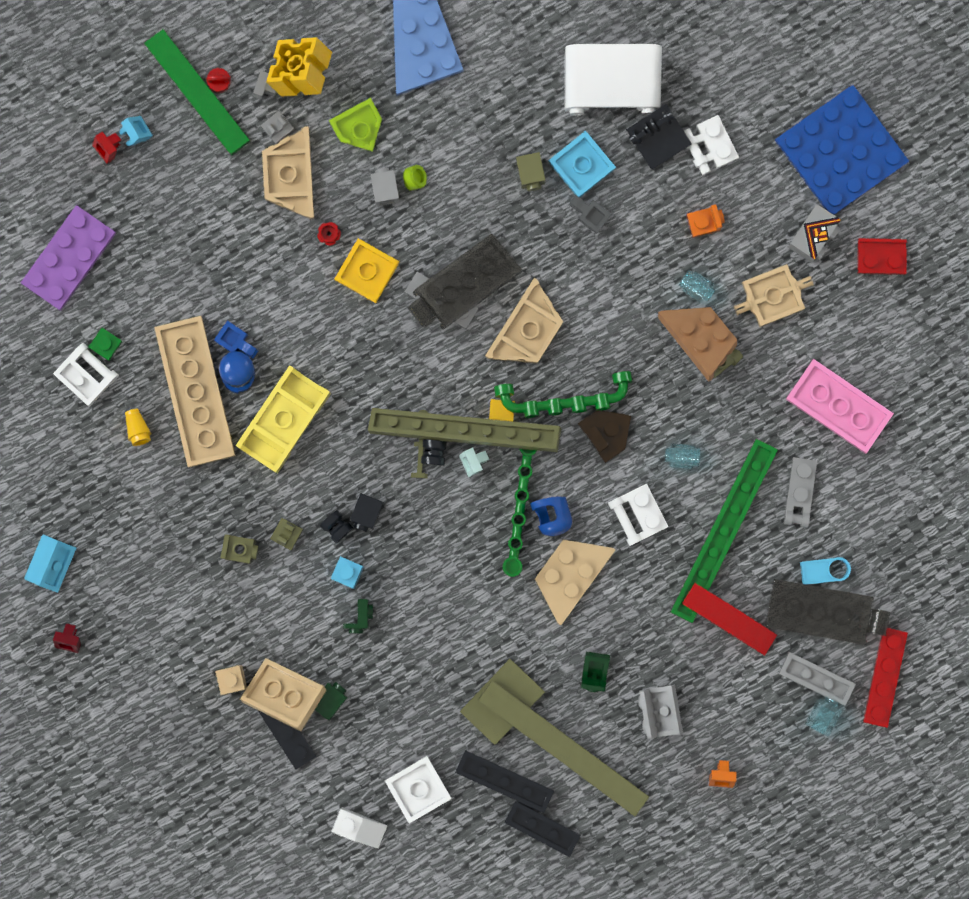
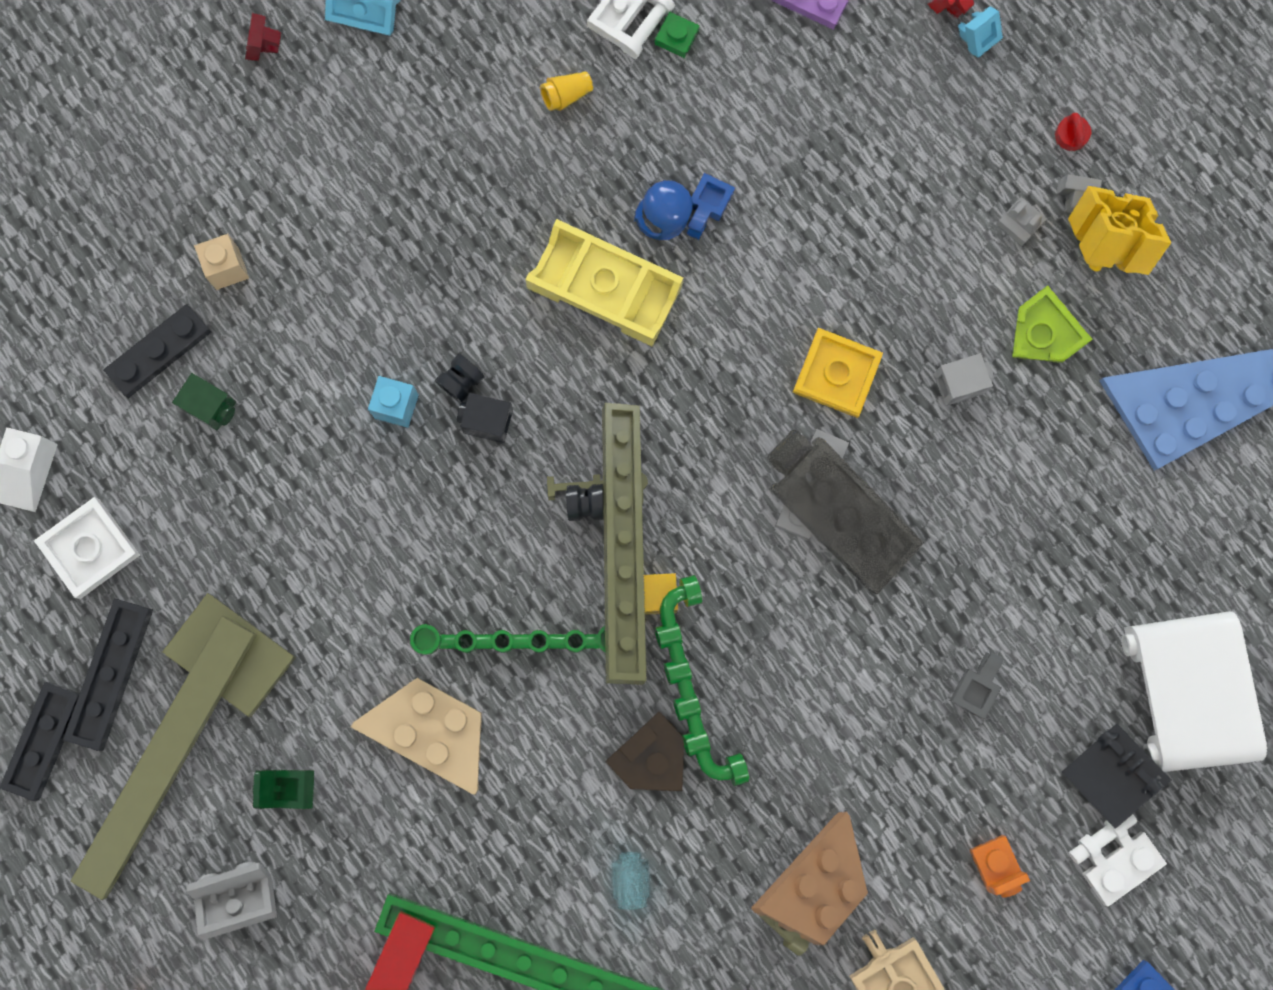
camera: 75 degrees right, 5 degrees down
(194, 391) = (627, 159): tan plate -> none
(197, 92) = (1049, 107): green tile -> none
(229, 549) = (411, 233): olive brick -> none
(283, 694) = (203, 334): tan plate -> none
(286, 534) = (441, 312): olive tile -> none
(289, 174) = (959, 245): tan wing -> none
(328, 227) = (886, 303): red plate -> none
(365, 612) = (337, 434): dark green bracket -> none
(414, 177) = (986, 421): lime tile -> none
(472, 461) = (579, 561): light aqua tile -> none
(527, 329) = (790, 616): tan wing -> none
(530, 171) = (1026, 587): olive brick -> none
(563, 521) = (517, 706): blue helmet -> none
(582, 164) = (1051, 664): medium azure plate -> none
(645, 510) = (540, 833): white plate -> none
(697, 286) = (896, 868): clear light blue brick -> none

